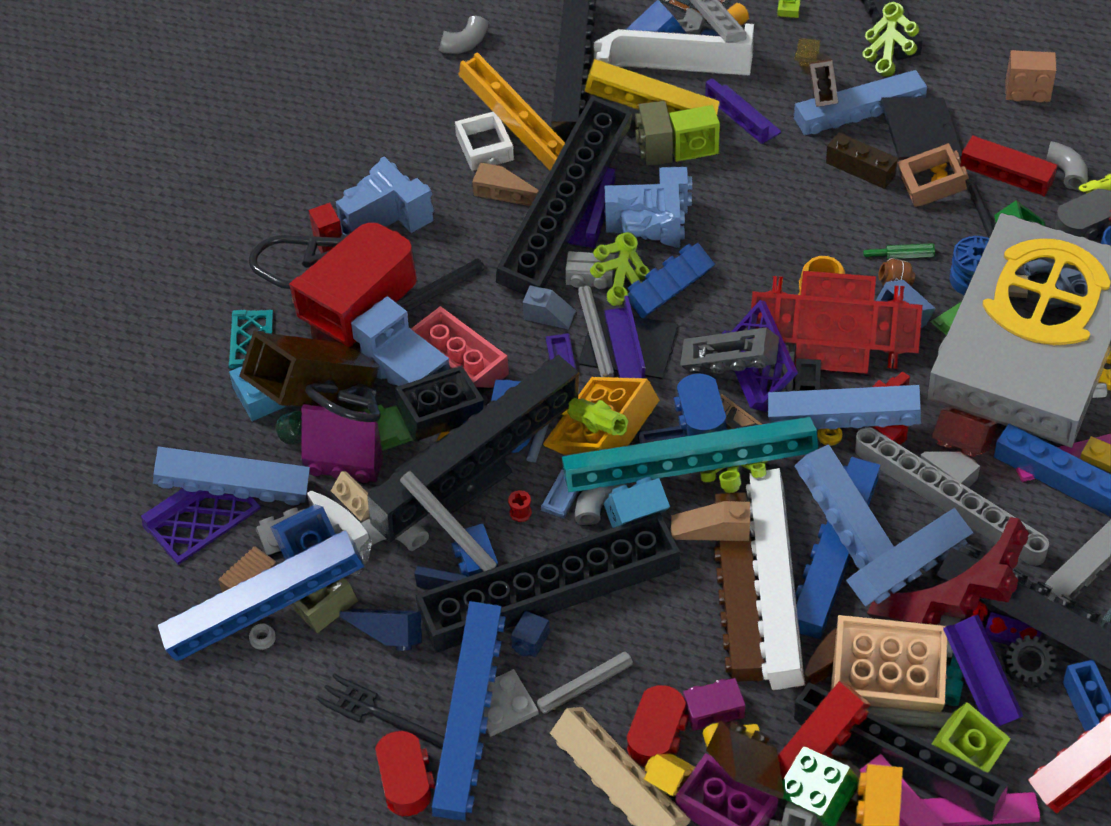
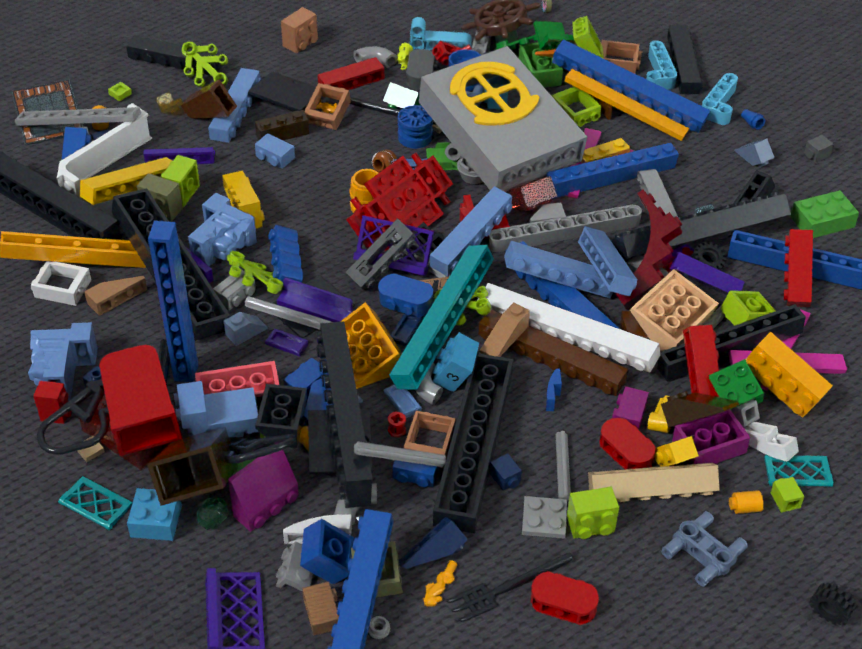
camera: 60 degrees left, 5 degrees down
(230, 475) = (227, 569): medium blue brick -> none
(341, 658) = (434, 590): none -> light orange animal
(352, 495) = (311, 506): tan bracket -> none
(433, 578) = (421, 497): dark blue tile -> none
(448, 218) = (173, 300): none -> blue brick
(467, 711) = (550, 530): blue brick -> none
(519, 526) = (427, 421): none -> nougat window
(525, 738) = (592, 512): none -> lime brick
(598, 416) = (375, 339): lime piece -> none
(688, 613) = (553, 390): none -> blue slope
(719, 197) = (243, 195): none -> yellow wedge
(820, 176) = (274, 151): none -> medium blue brick
(903, 251) = (367, 151): green axle -> none

